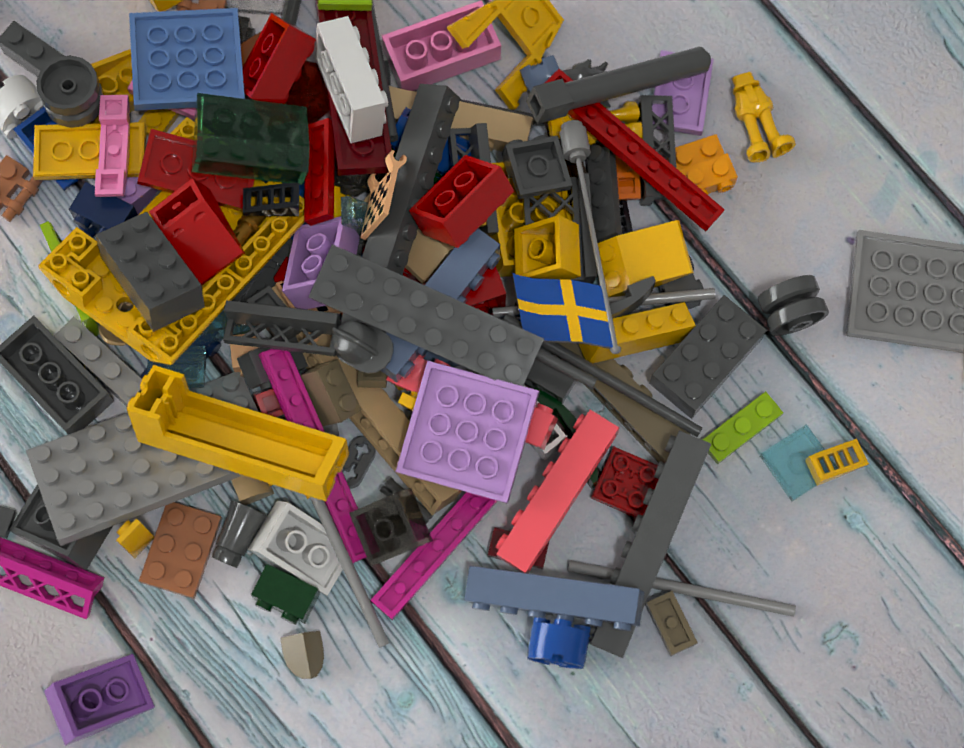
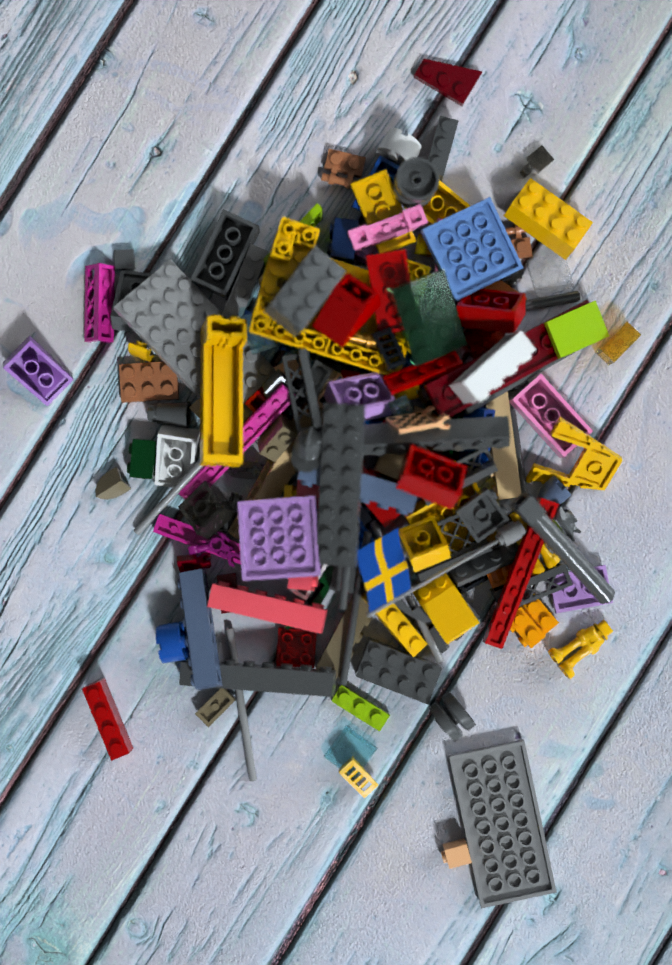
camera: 70 degrees right, 15 degrees up
(447, 532) = (217, 545): none -> magenta piece
(455, 579) = (192, 562): none -> dark red plate

